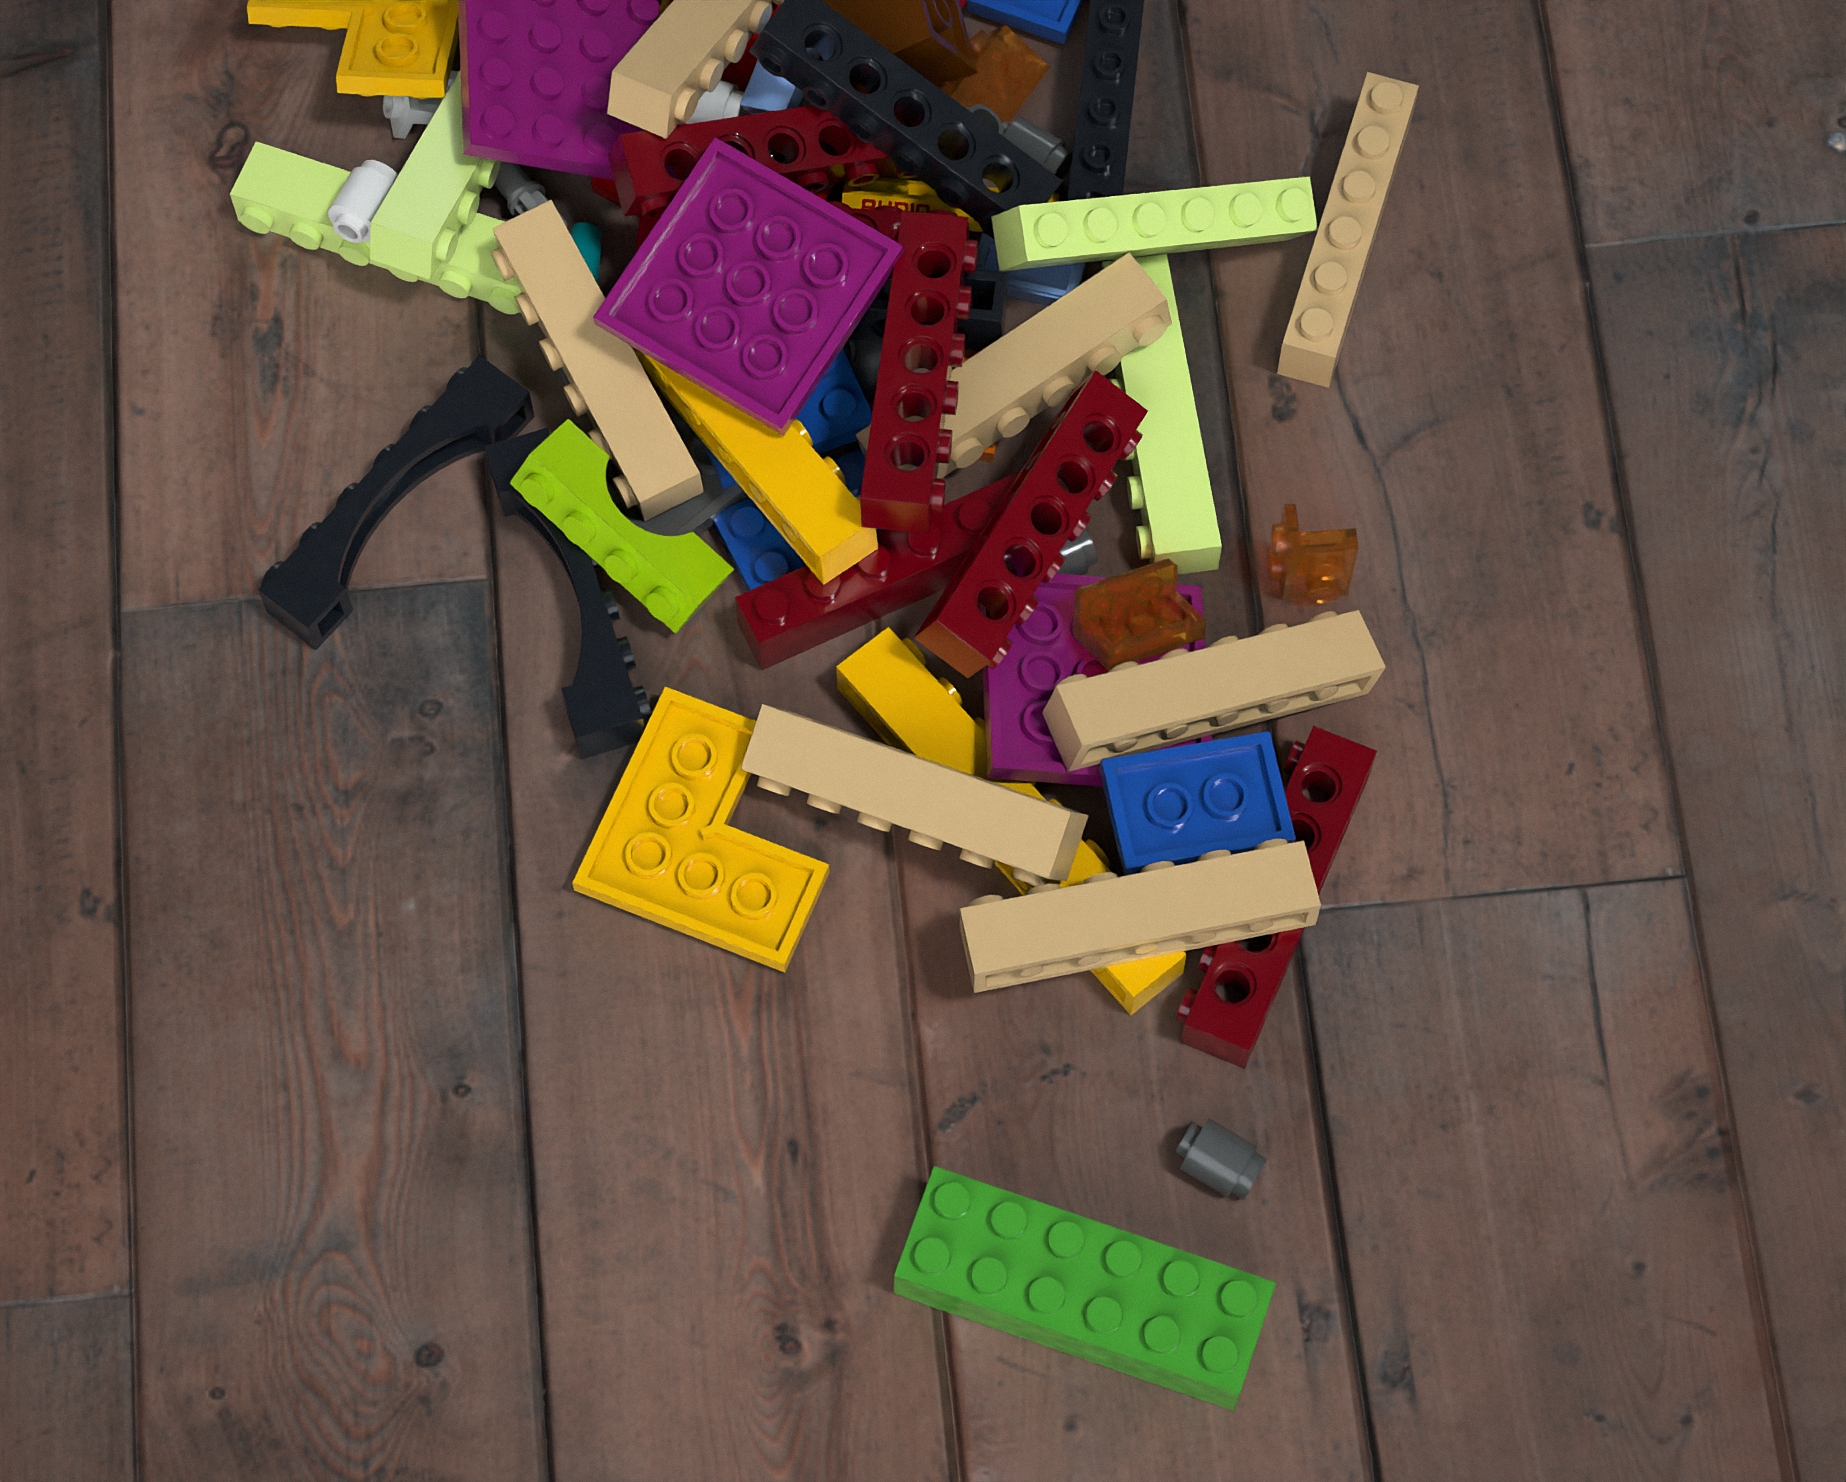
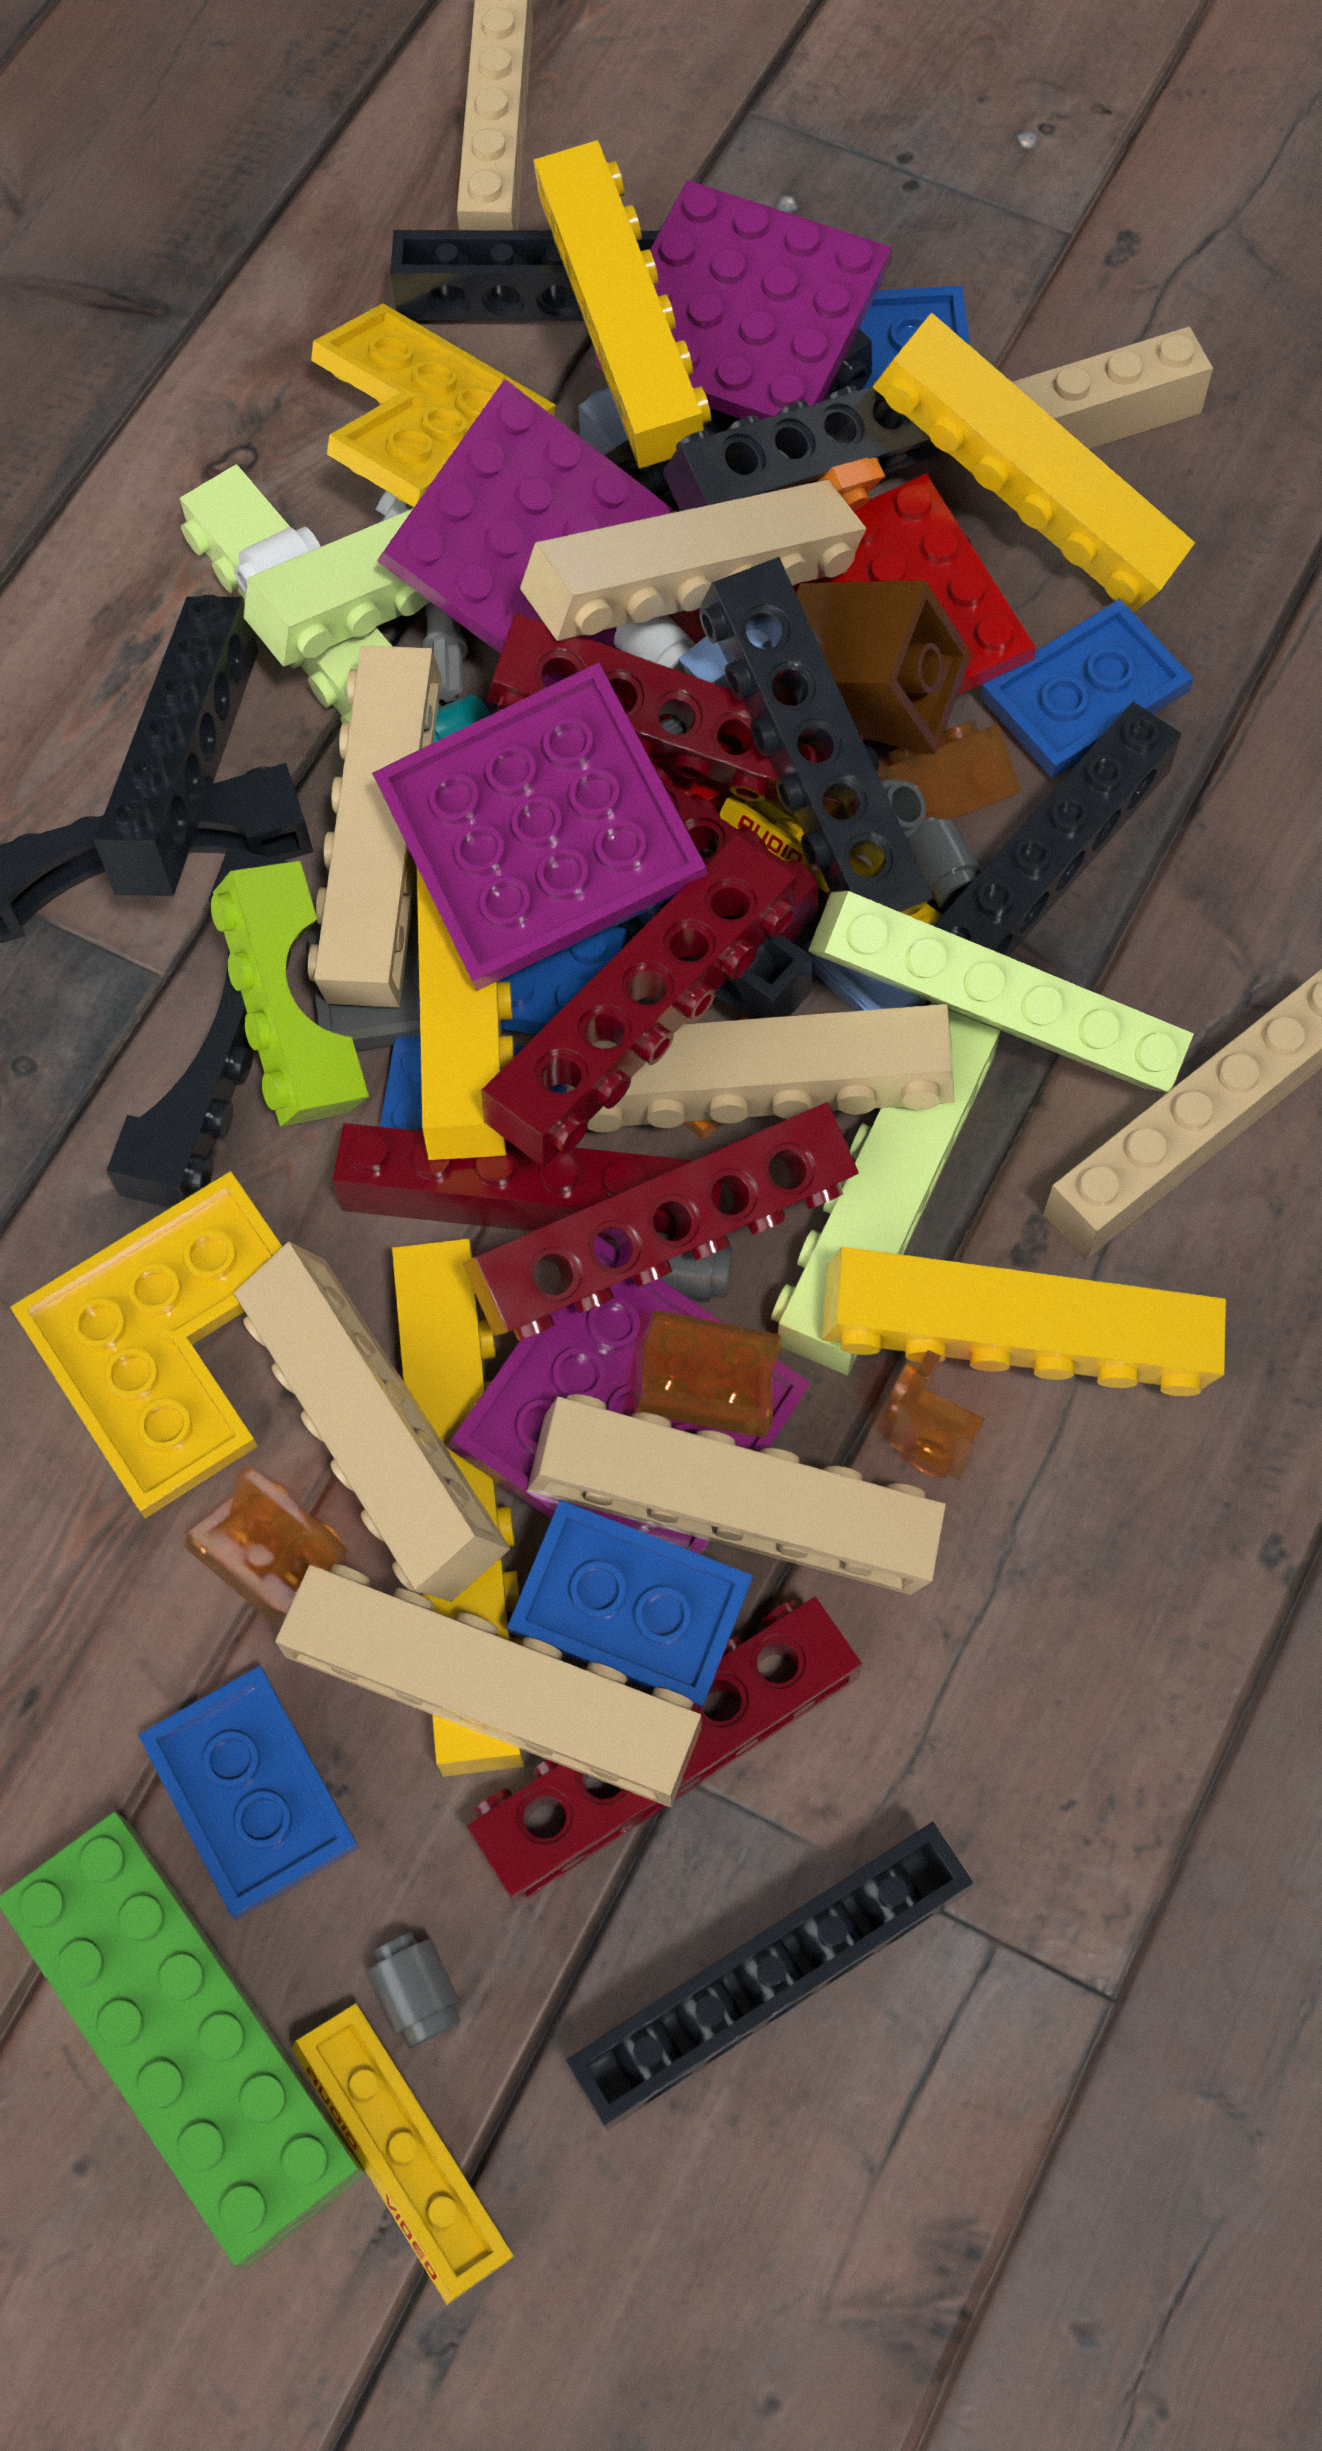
camera: 35 degrees right, 0 degrees up
(392, 386) = (177, 747): none -> black brick
(898, 932) = (264, 1545): none -> clear orange bracket
(1006, 1105) = (248, 1792): none -> blue plate
(1300, 1267) = (402, 2153): none -> yellow plate
(1325, 451) = (1023, 1321): none -> yellow brick
(1455, 994) = (769, 1975): none -> black brick

